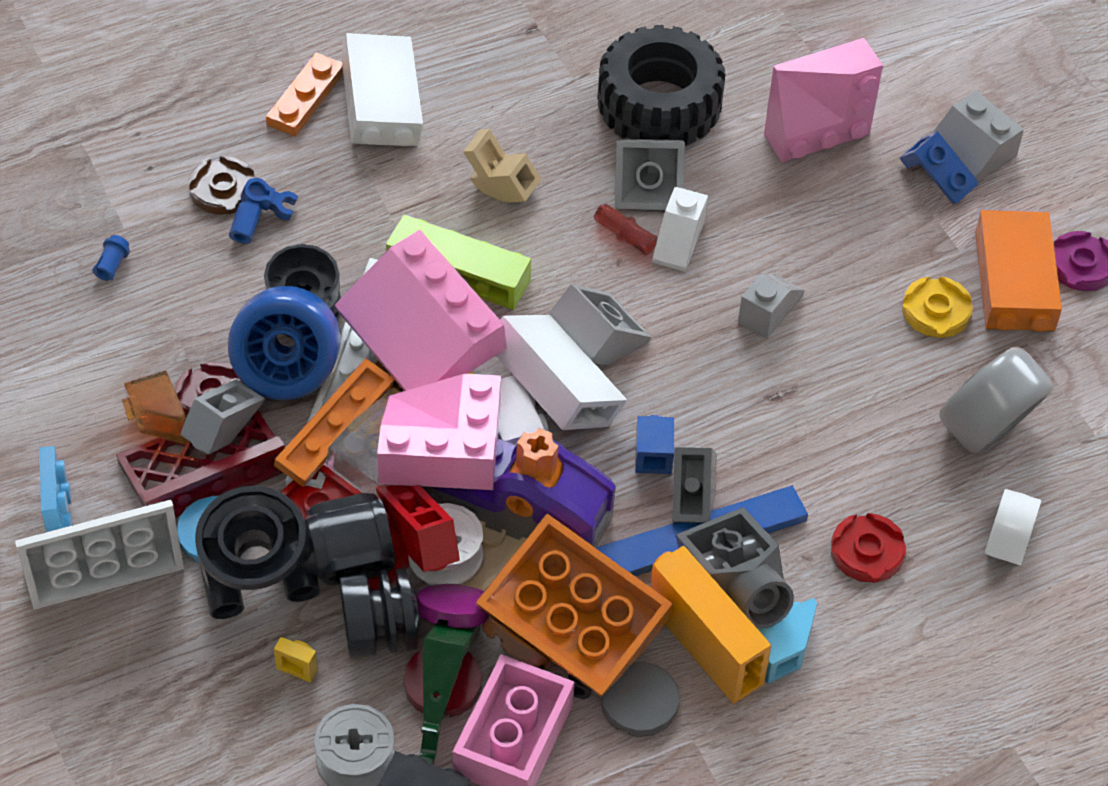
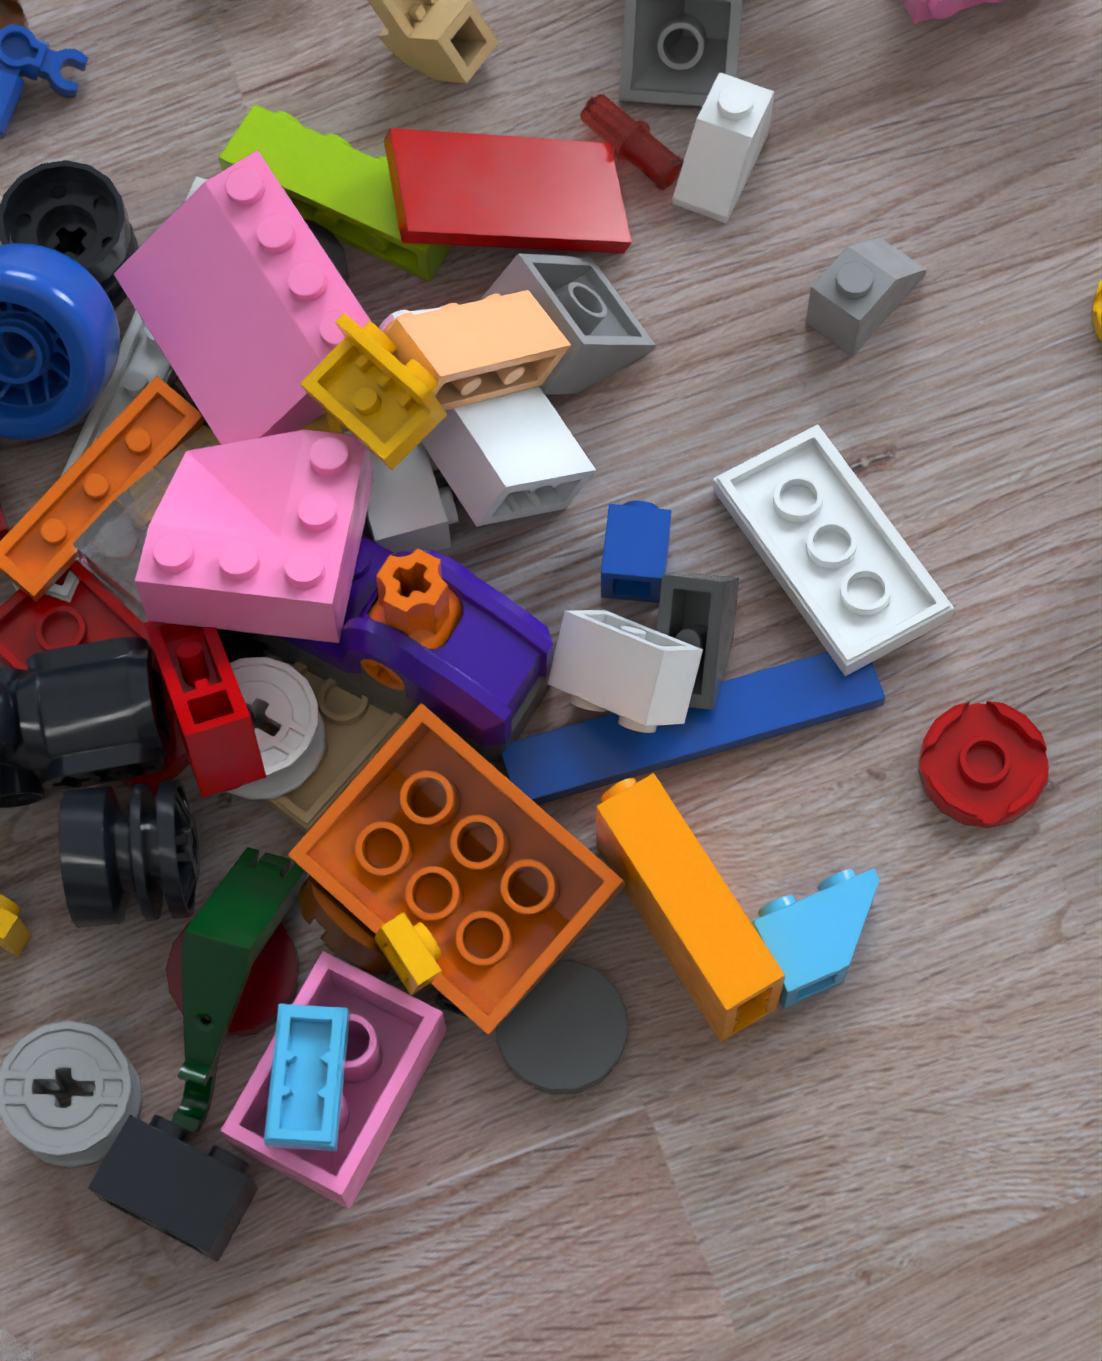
camera: 10 degrees right, 15 degrees up
(451, 603) = (251, 841): magenta tile -> none
(502, 716) = (307, 1077): none -> medium azure plate
(505, 348) = (374, 393): none -> yellow bracket
(551, 333) = (481, 347): none -> light nougat brick
(553, 646) = (410, 952): none -> yellow plate
(557, 255) = (506, 191): none -> tile
(658, 500) = (624, 669): none -> white brick
(743, 564) = (751, 806): dark grey brick -> none
(768, 438) = (832, 550): none -> white tile

